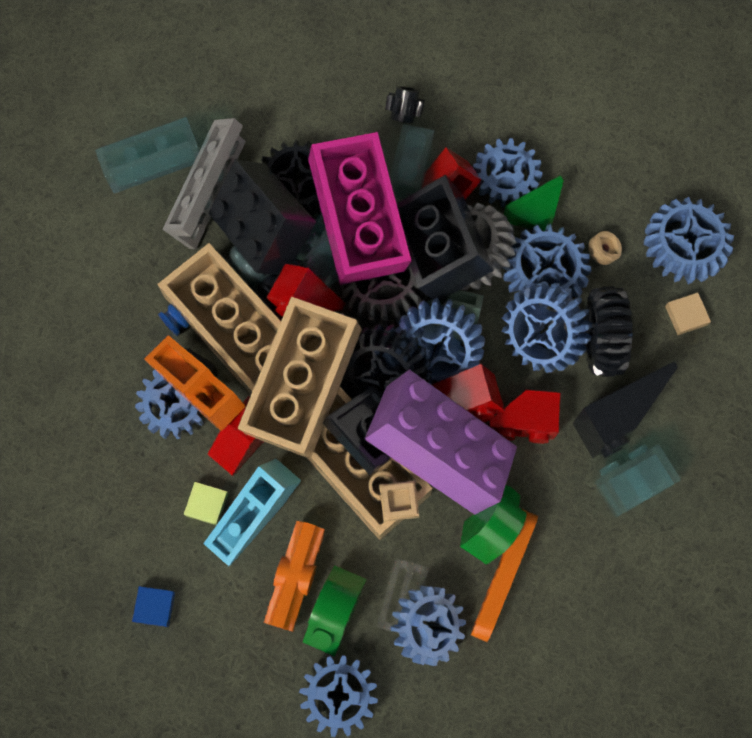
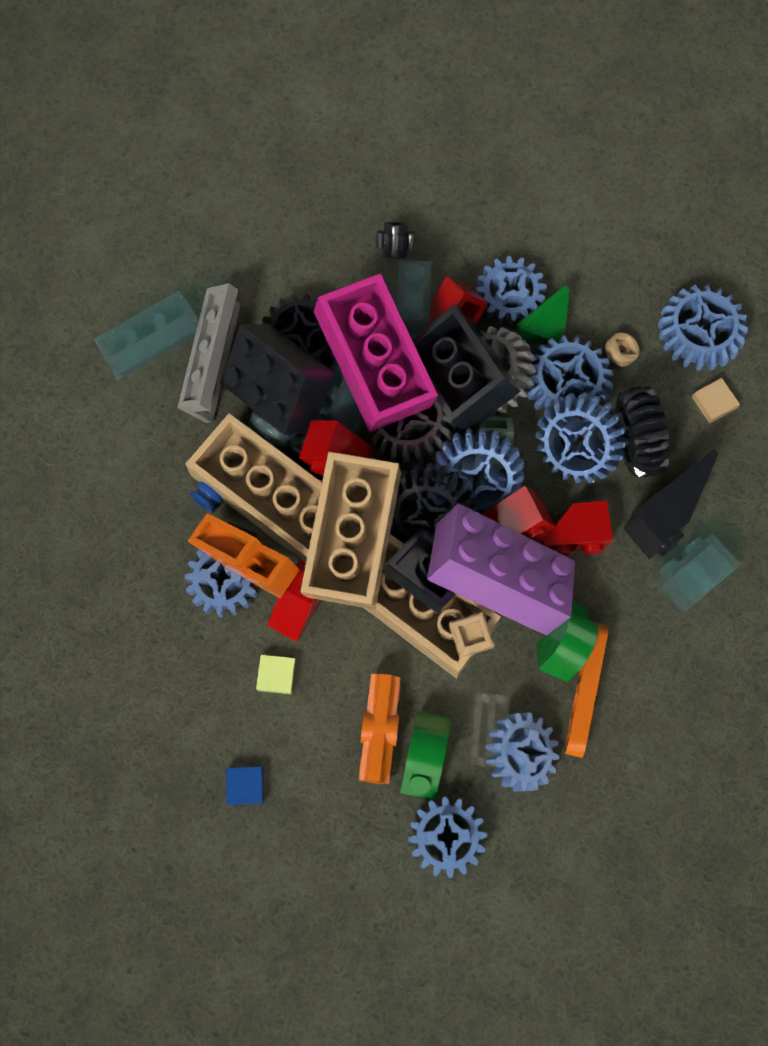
camera: 10 degrees left, 0 degrees up
(252, 510) = (324, 672): medium azure slope -> none

